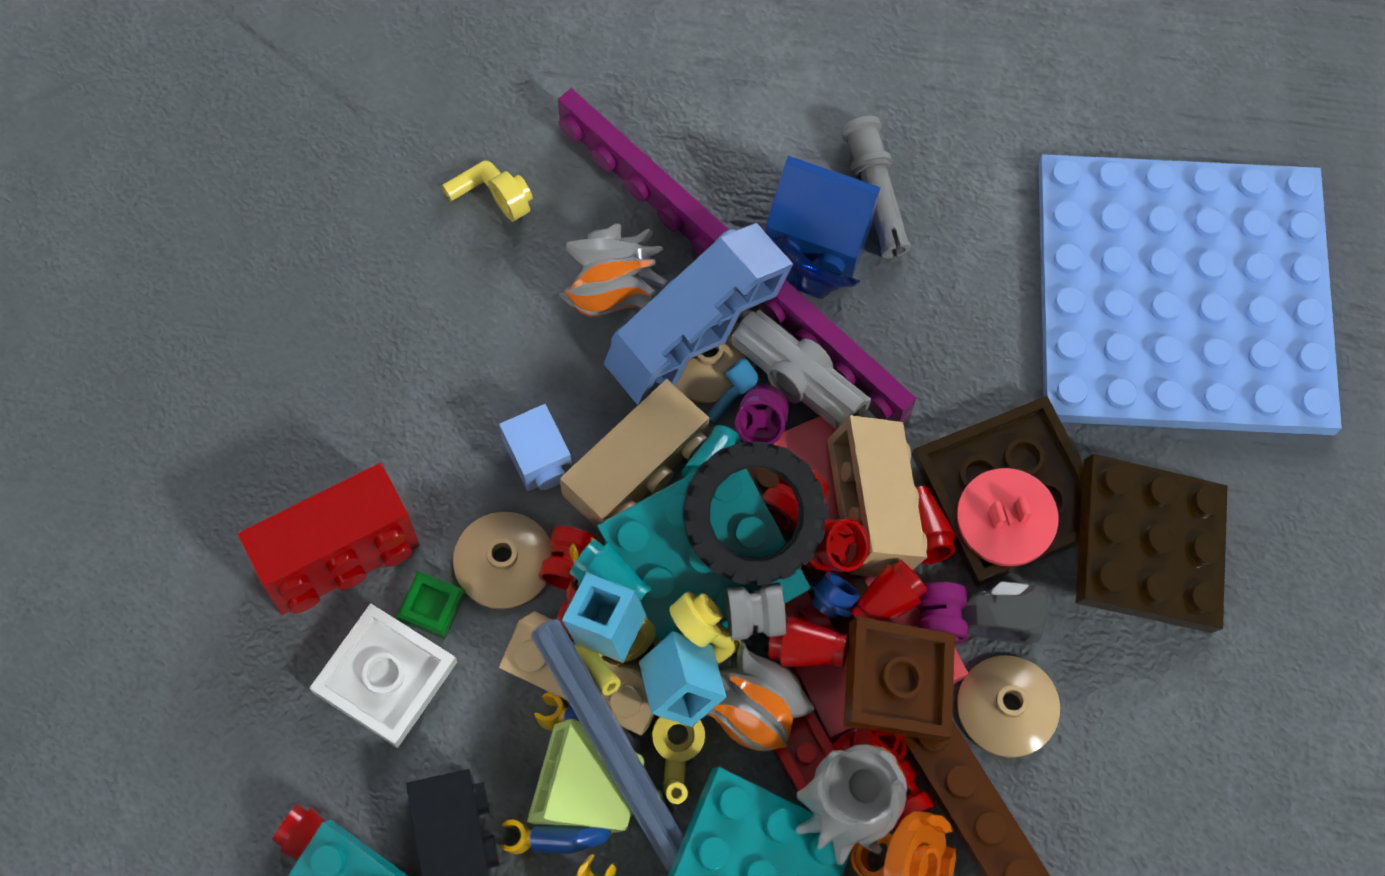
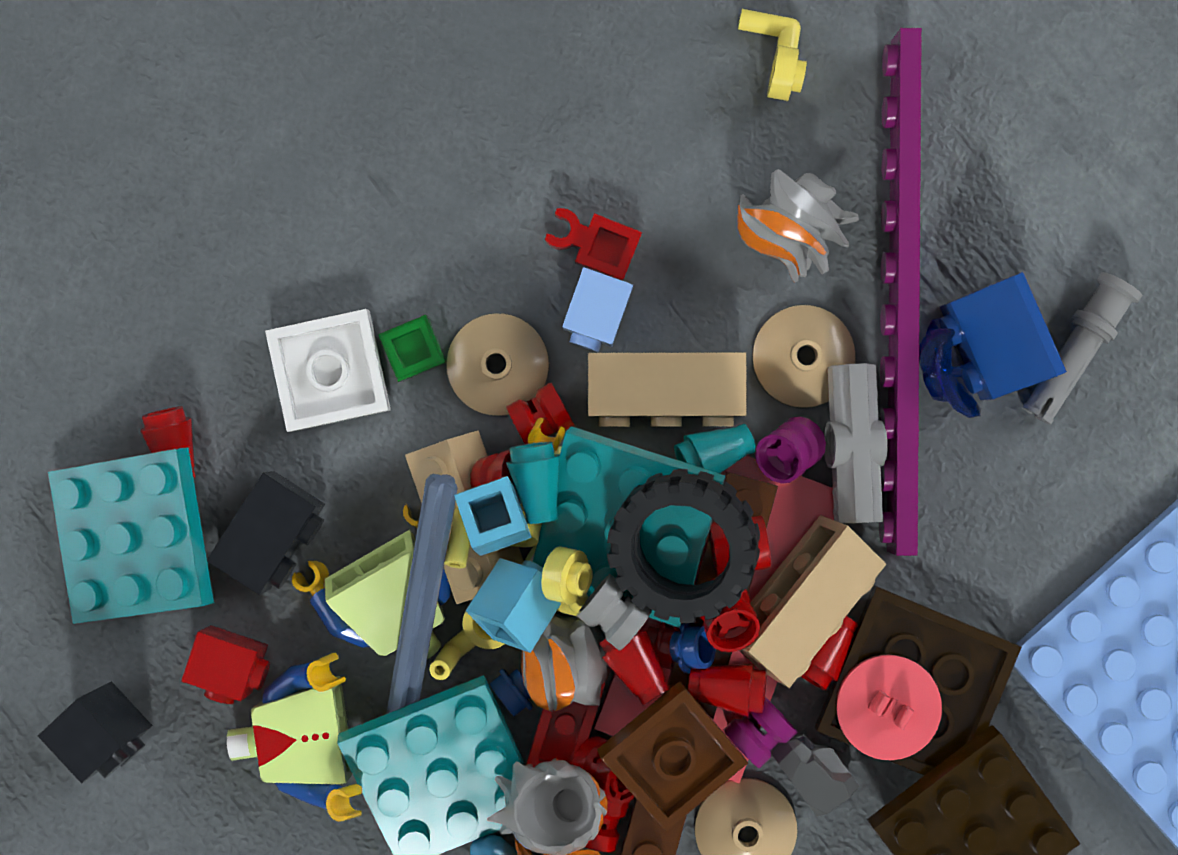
camera: 55 degrees right, 20 degrees up
(330, 540) = (374, 236): red brick -> none
(492, 406) = (602, 246): none -> red plate
(696, 310) = (824, 323): medium blue brick -> none
(743, 378) = (808, 405): dark azure hand -> none
(747, 765) = (511, 691): none -> blue plate

